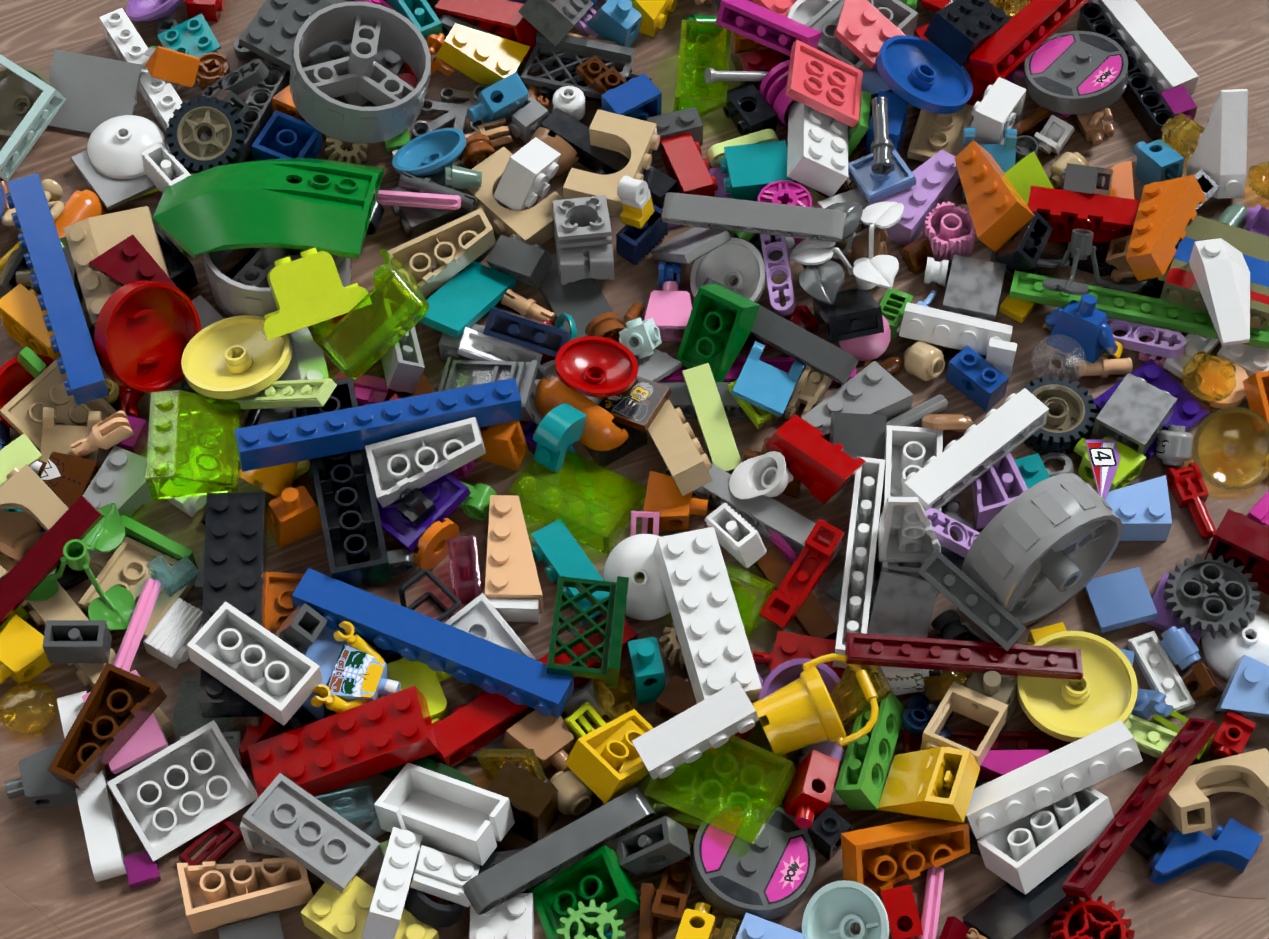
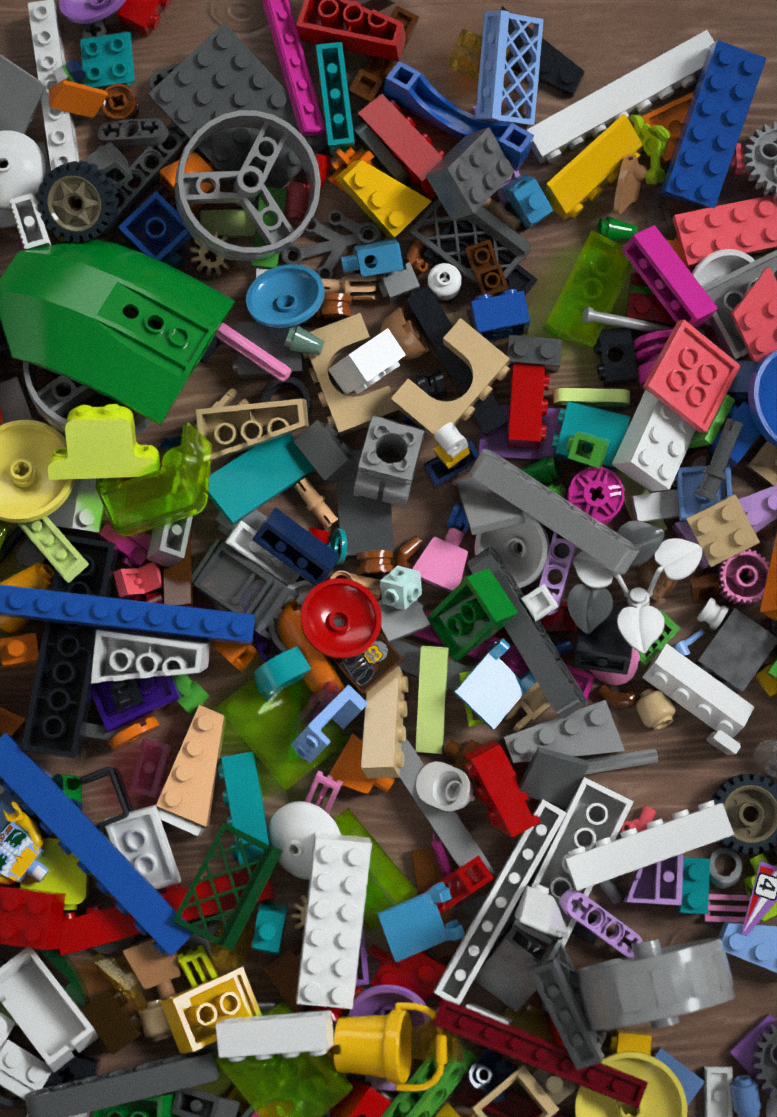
camera: 25 degrees right, 25 degrees up
(421, 185) = (266, 340): dark grey pin -> none
(601, 466) = (326, 695): none -> pin
(623, 461) = (341, 710): none -> light blue panel
(736, 535) = (401, 831): white brick -> none
(761, 159) = (577, 452): none -> bright green brick
(776, 298) = (540, 602): none -> white tile
(788, 605) = (418, 924): none -> dark azure flag
(913, 187) = (722, 530): none -> tan plate
(947, 422) = (642, 789): medium nougat arm -> none
(977, 378) = (695, 749): blue brick -> none
(1120, 600) = (718, 1029): medium blue tile -> none

